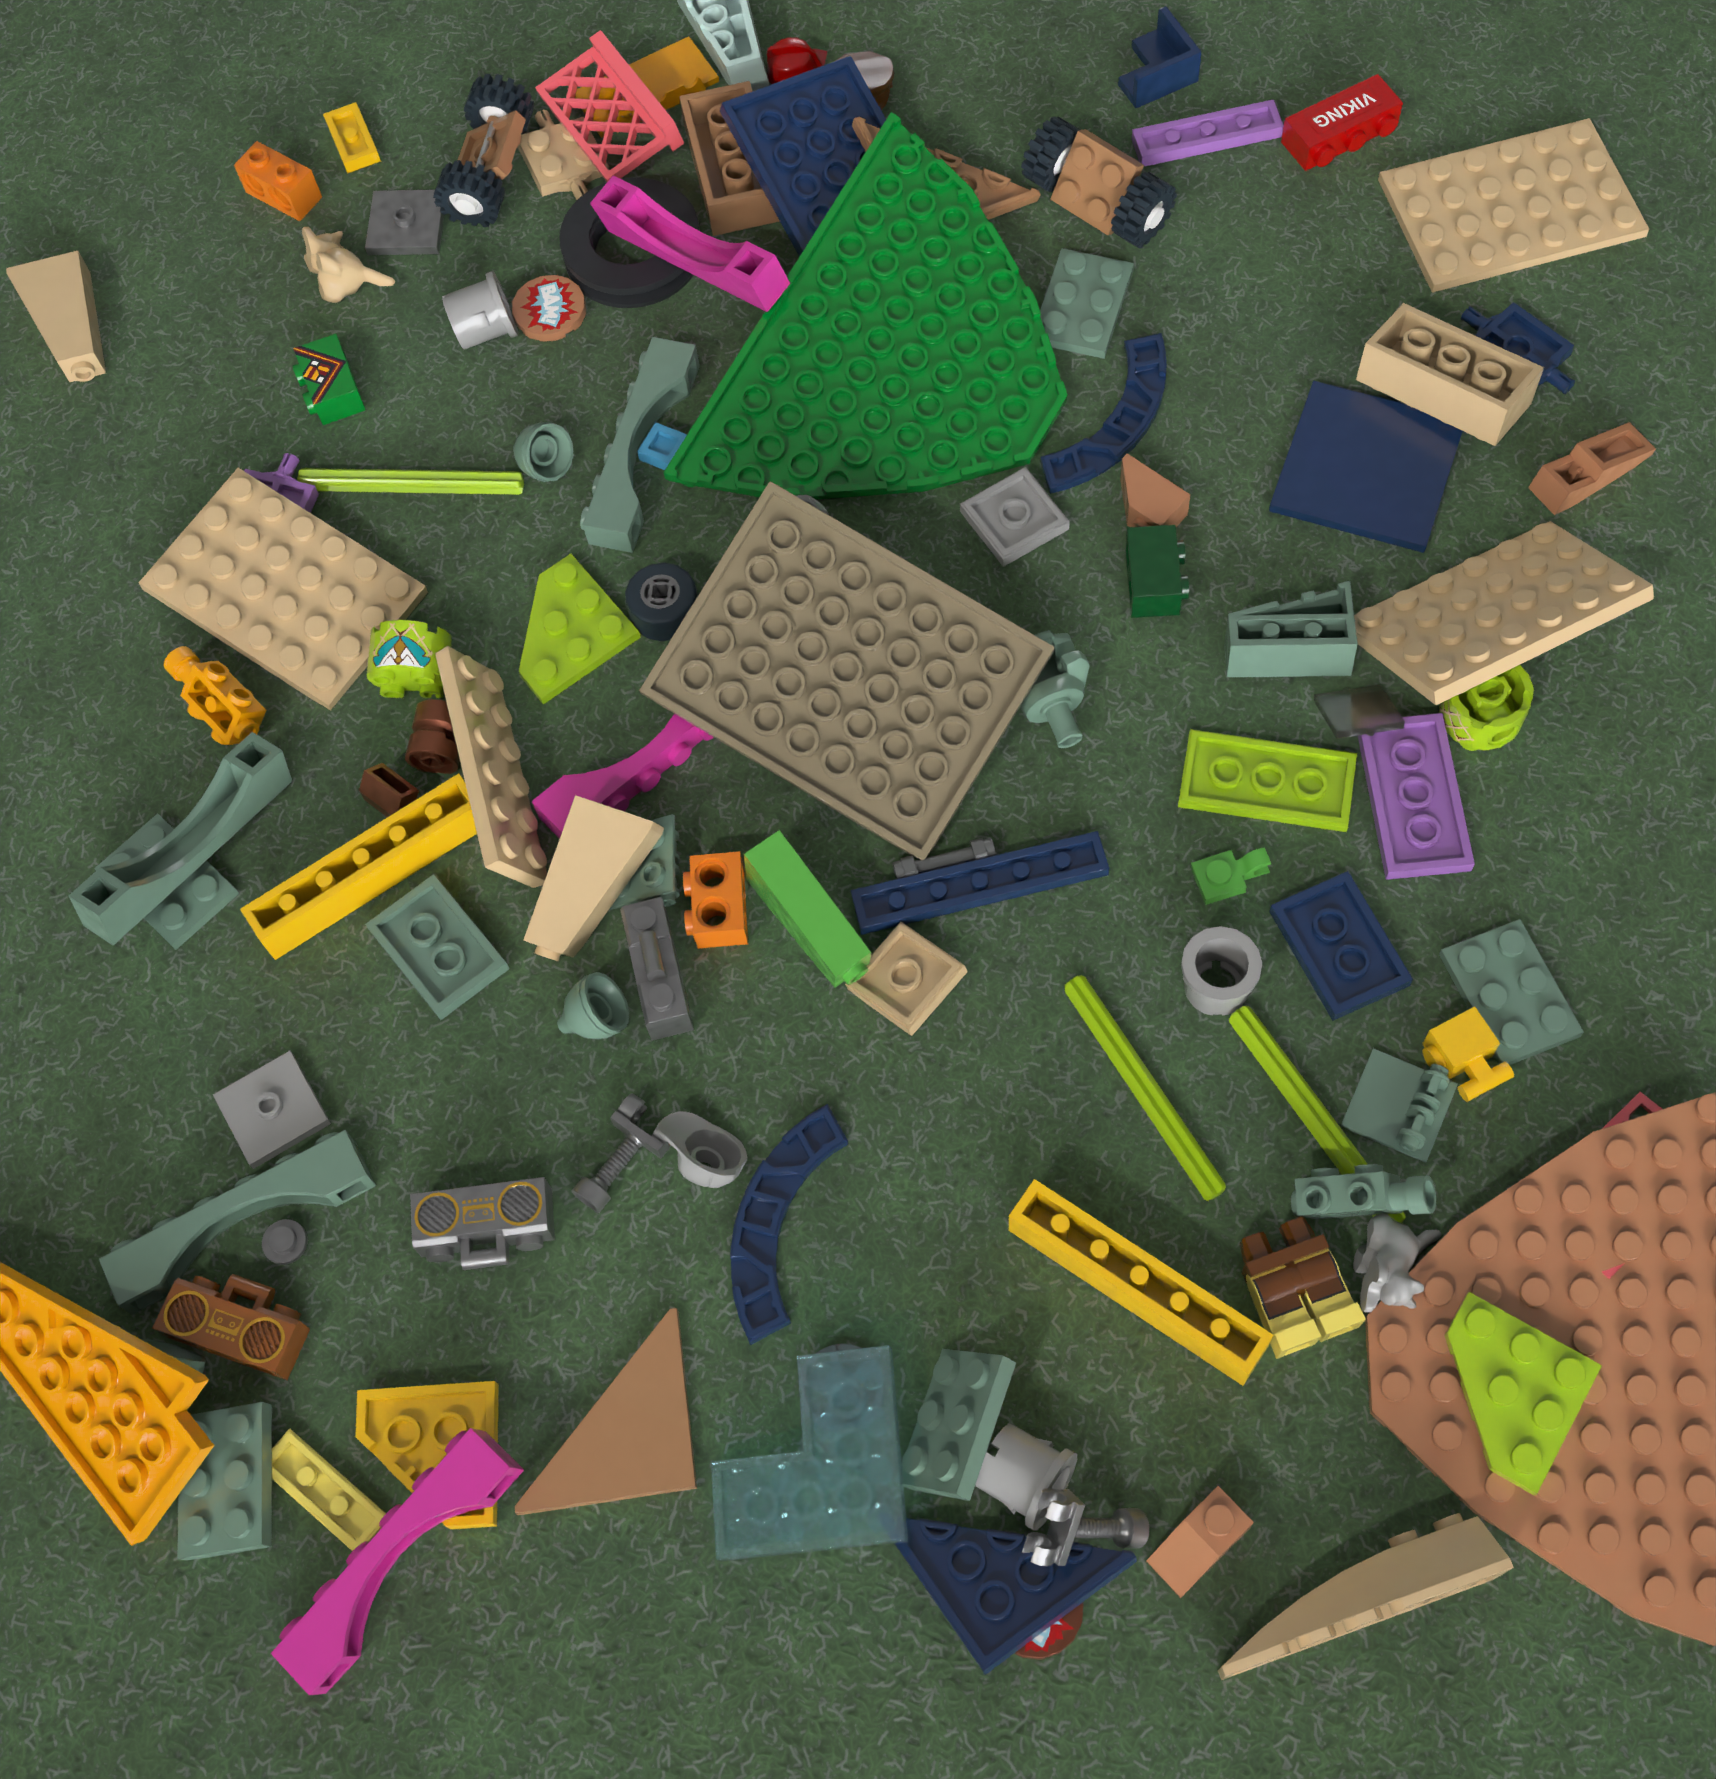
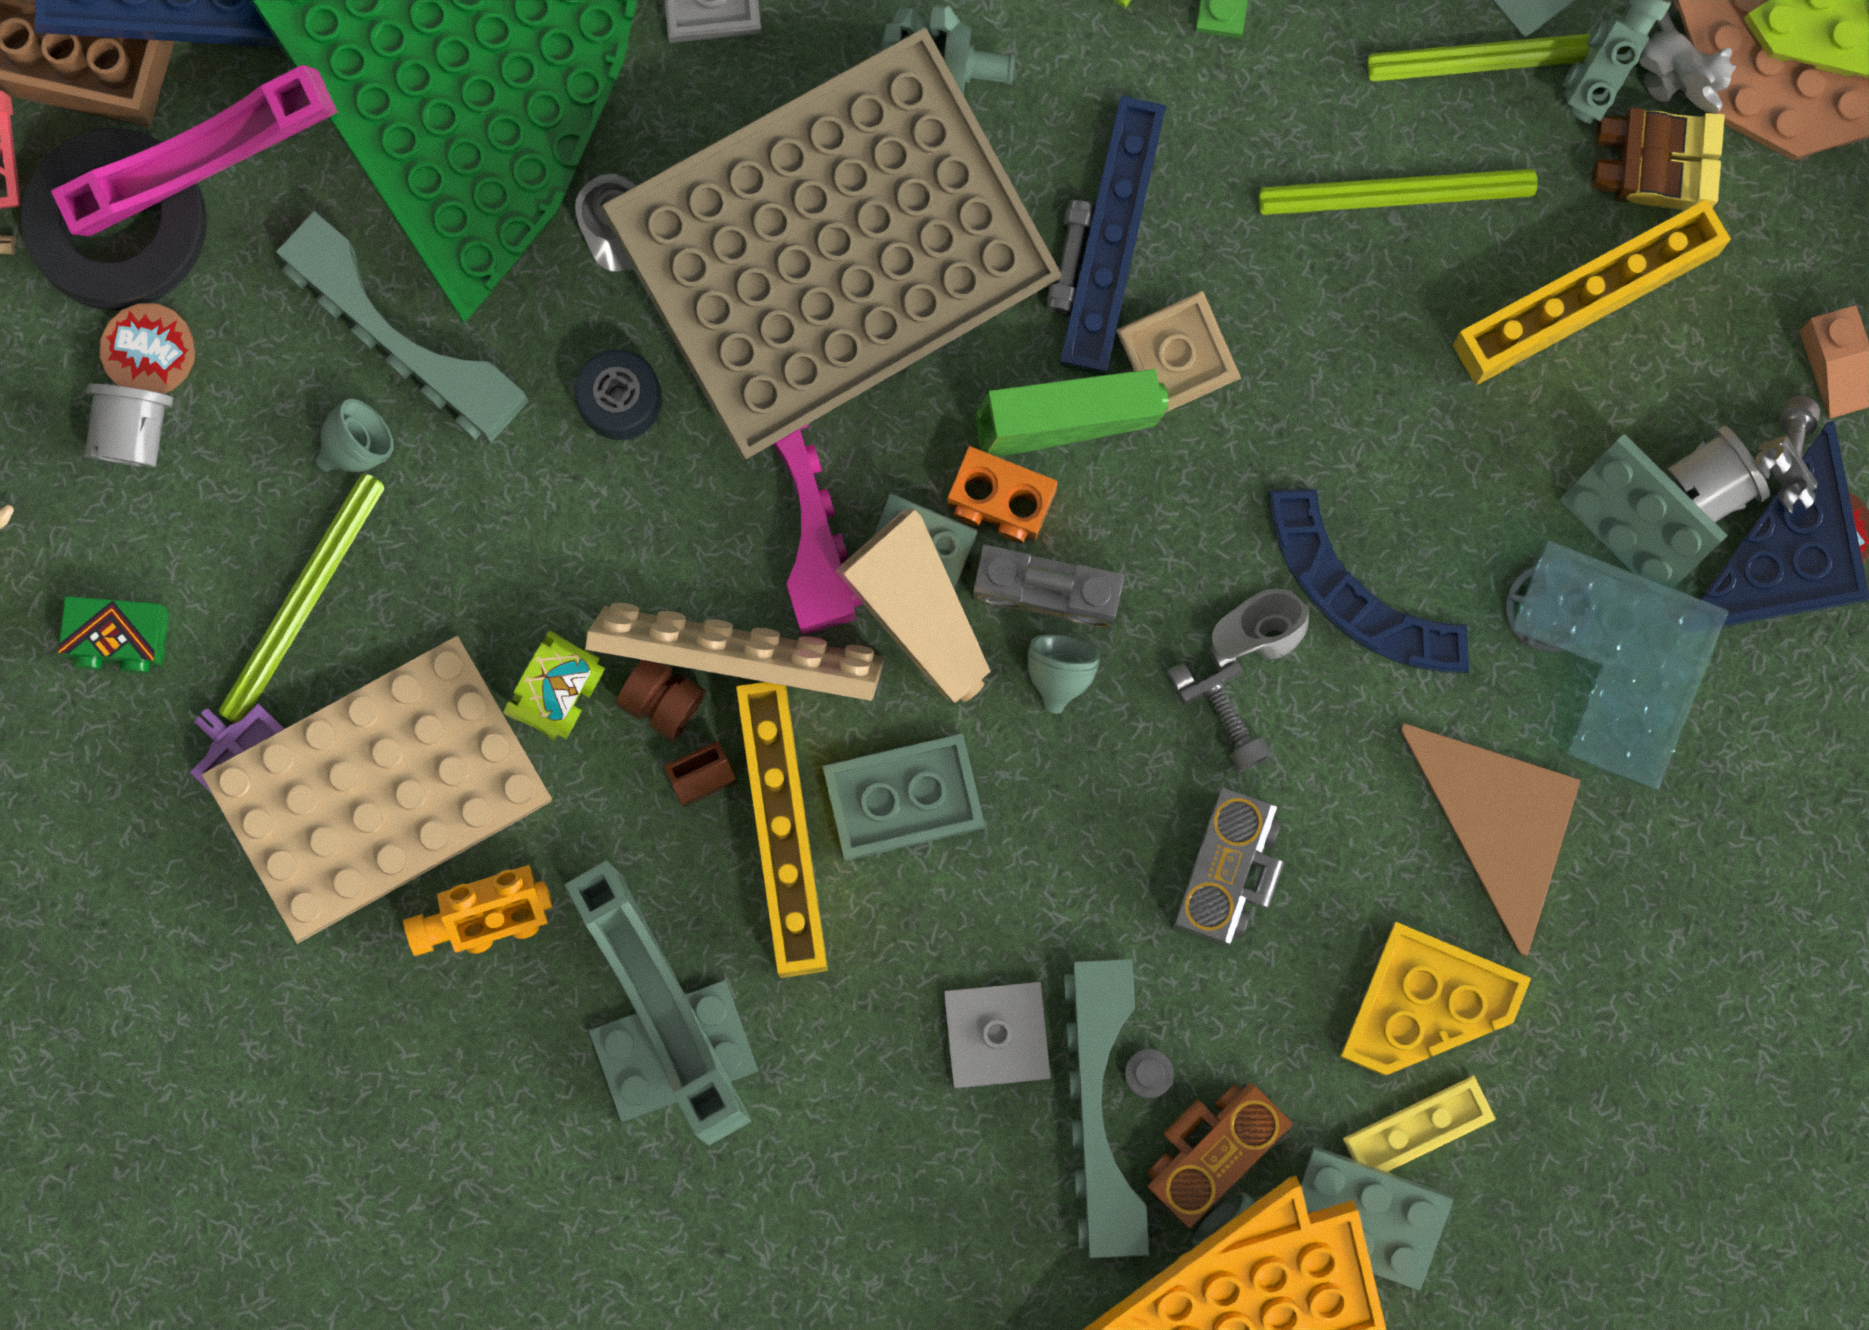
camera: 70 degrees left, 15 degrees up
(330, 1635) = (1492, 982): dark pink arch -> none
(570, 630) = (592, 505): lime plate -> none
(660, 445) = (417, 307): dark azure plate -> none
(1236, 955) = (1337, 35): light grey piece -> none

